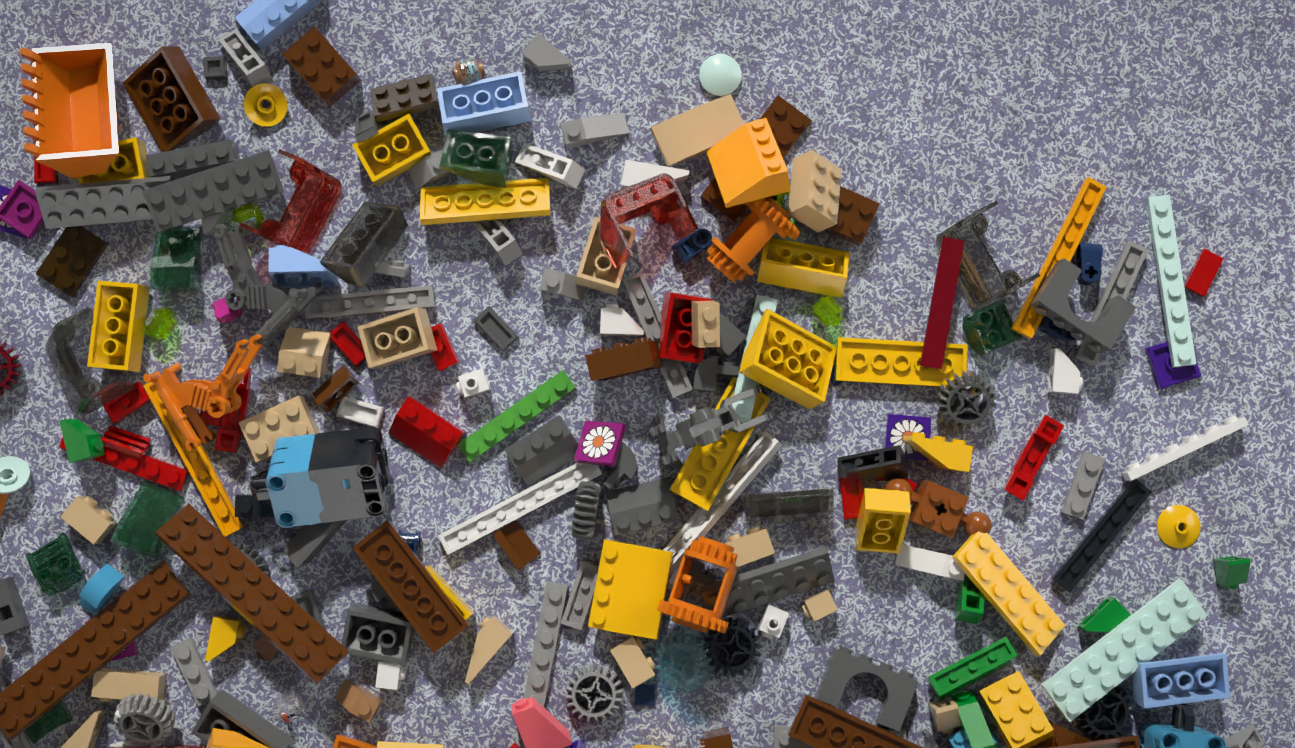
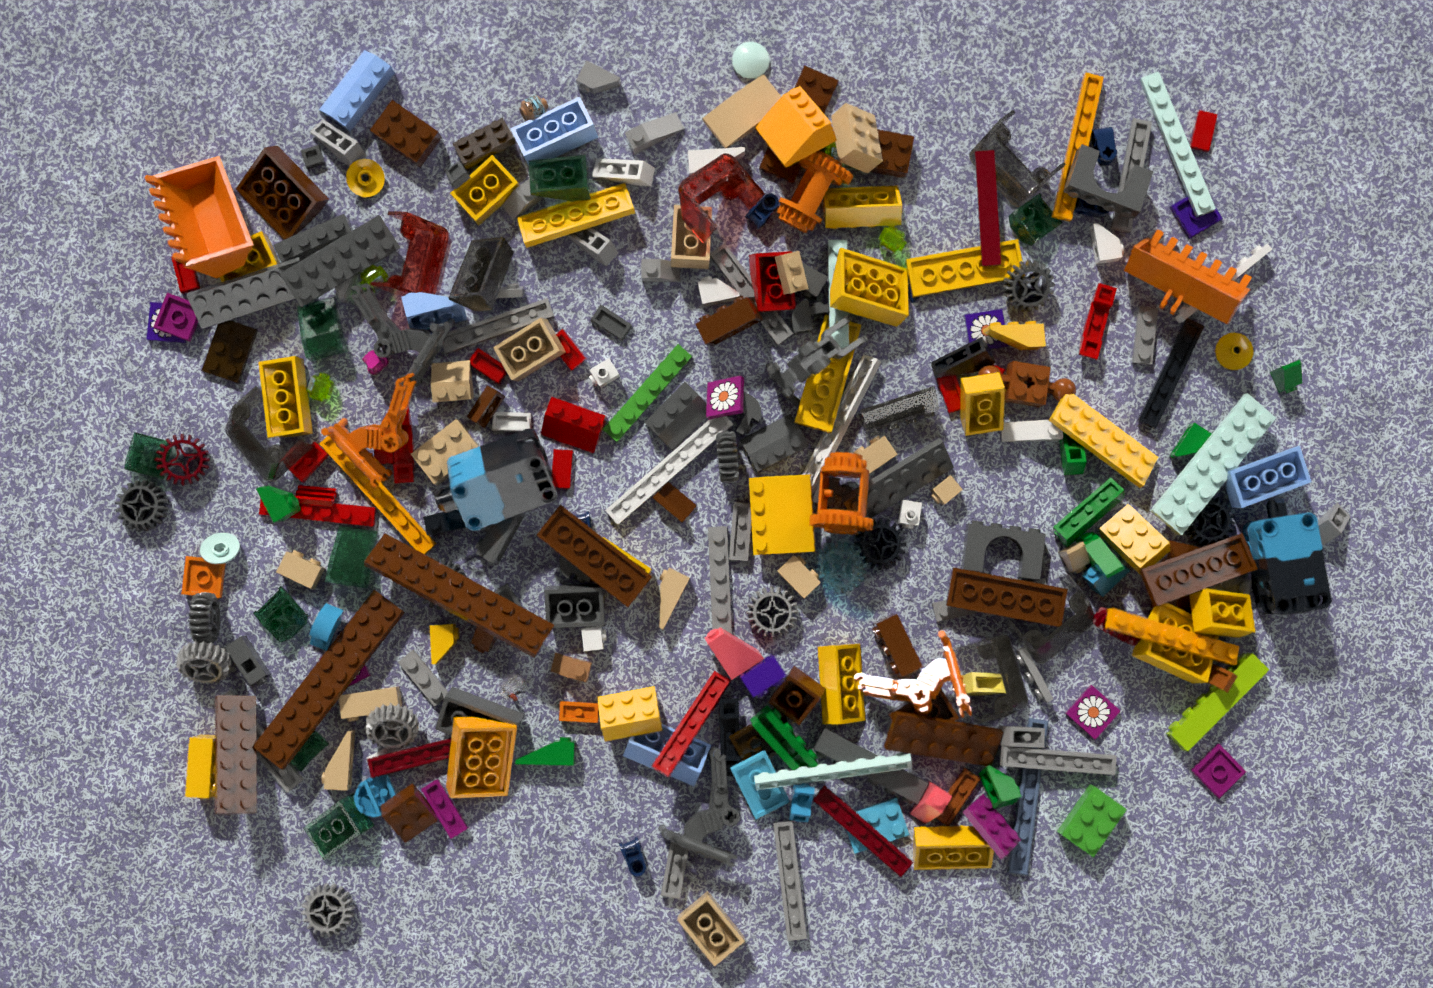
camera: 20 degrees left, 0 degrees up
(402, 477) = (562, 468): none -> red tile
(644, 694) = (815, 603): dark blue piece -> none
(1146, 435) = (1187, 278): none -> orange piece

